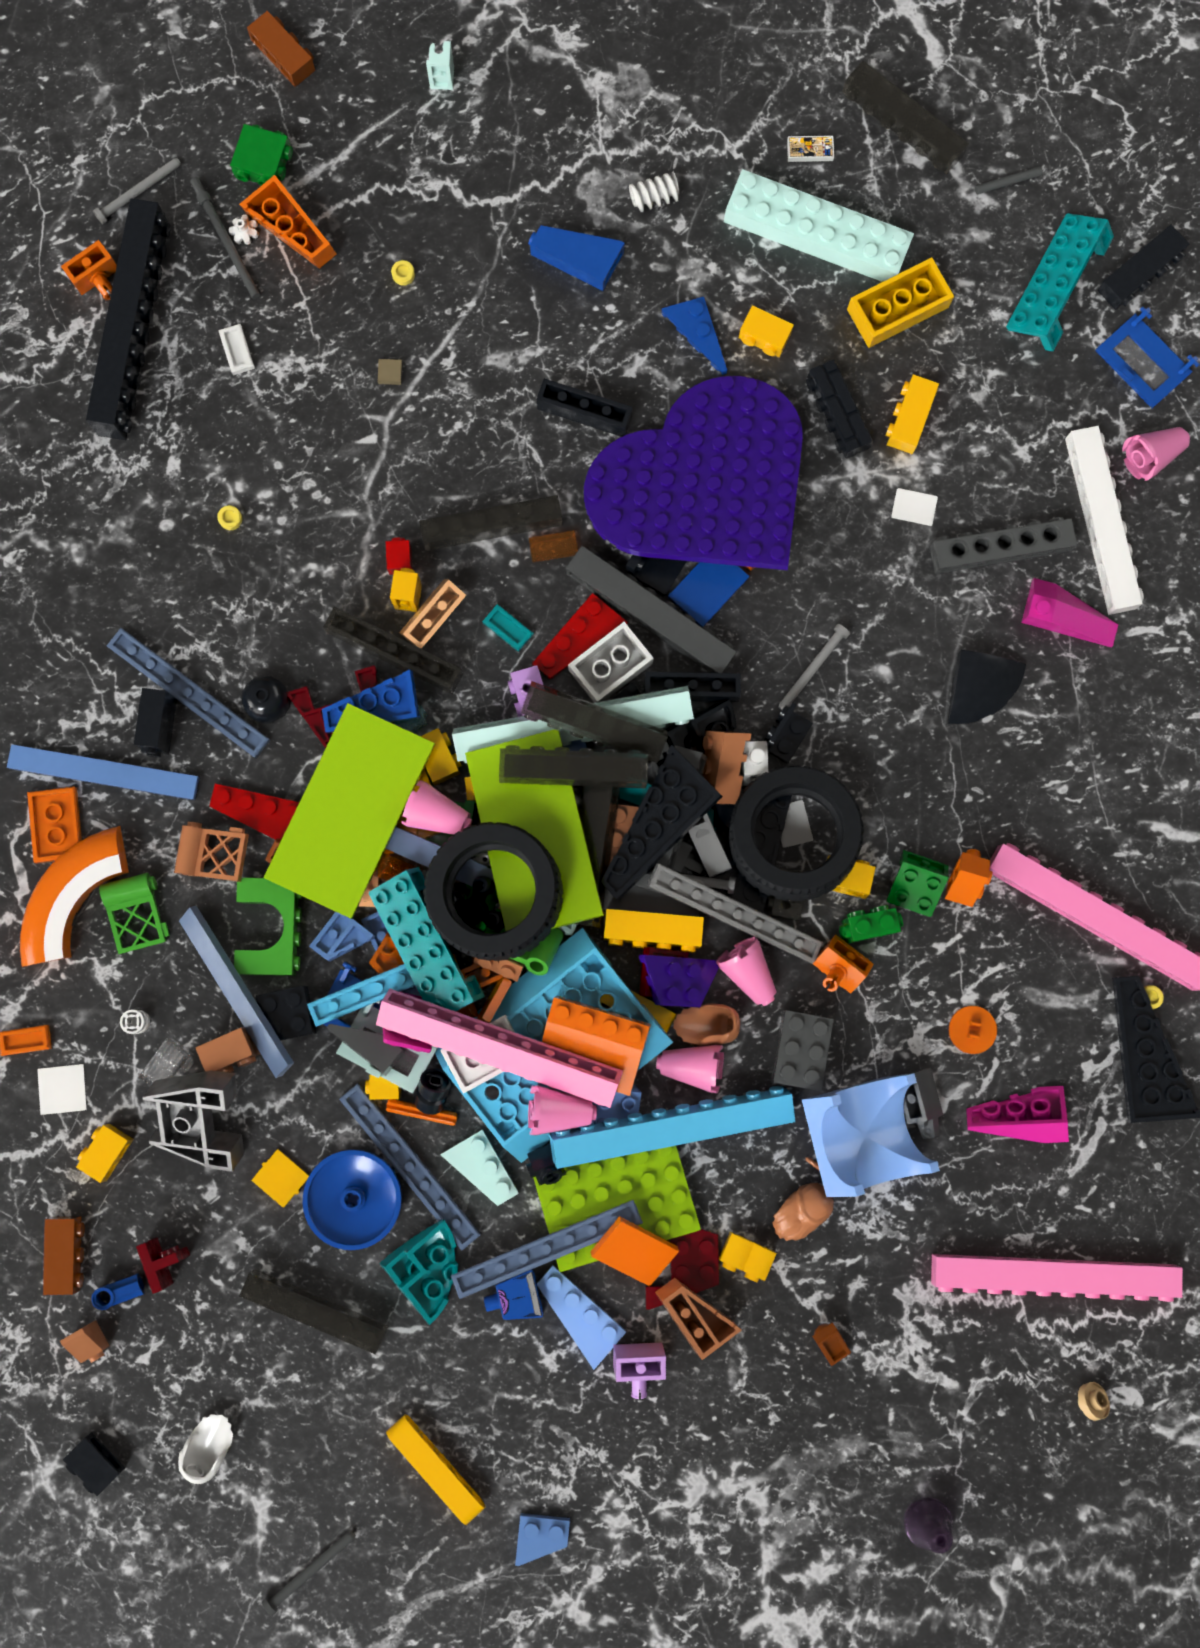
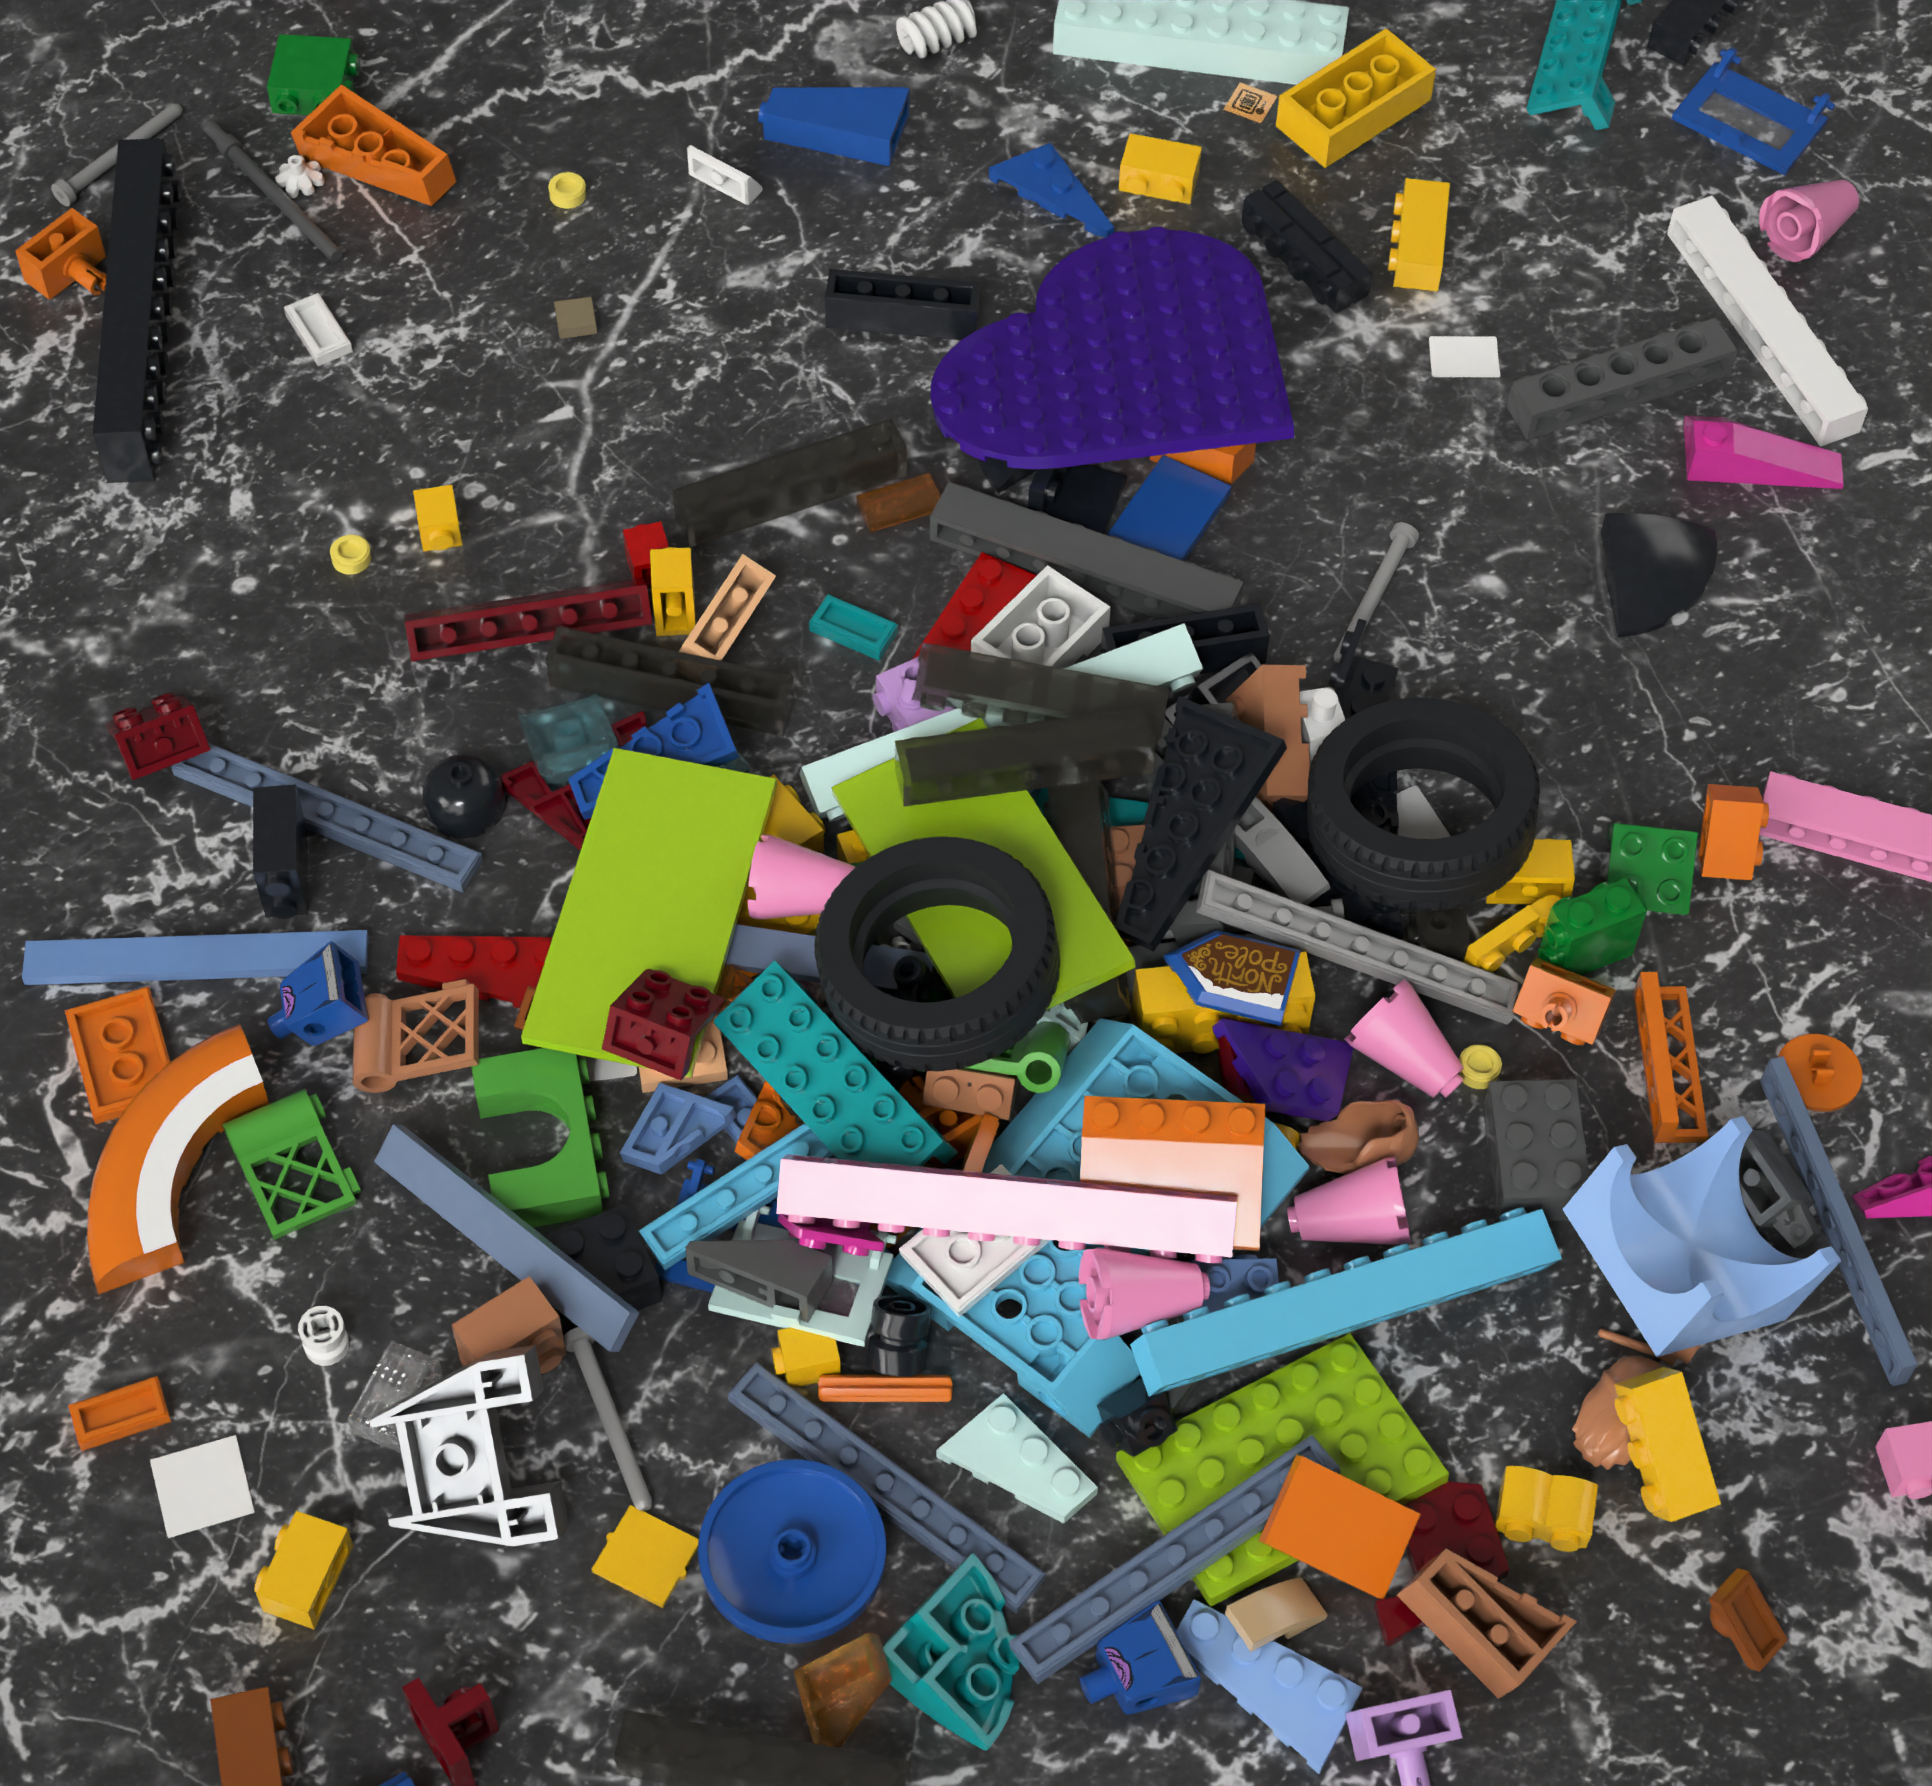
camera: 10 degrees left, 25 degrees down
(99, 624) = (158, 734): none -> dark red bracket
(164, 819) = (321, 997): none -> blue torso
(277, 1111) = (580, 1343): none -> light grey bar
(282, 506) = (437, 518): none -> yellow brick
(319, 590) = (527, 619): none -> dark red brick
(330, 675) = (567, 737): none -> clear light blue slope
(339, 888) = (659, 1022): none -> dark red bracket
(361, 1279) = (842, 1688): none -> clear orange wing
(499, 281) = (722, 176): none -> white slope
(592, 1284) = (1275, 1612): none -> tan slope
(661, 925) = (1237, 974): none -> tile
(787, 987) = (1480, 1066): none -> light yellow tile
(817, 1243) = (1666, 1444): none -> yellow brick
(830, 914) = (1511, 935): none -> yellow hinge
(836, 285) = (1250, 102): none -> clear orange sticker
(885, 1004) = (1660, 1063): none -> orange fence
(952, 1127) = (1838, 1223): none -> sand blue tile

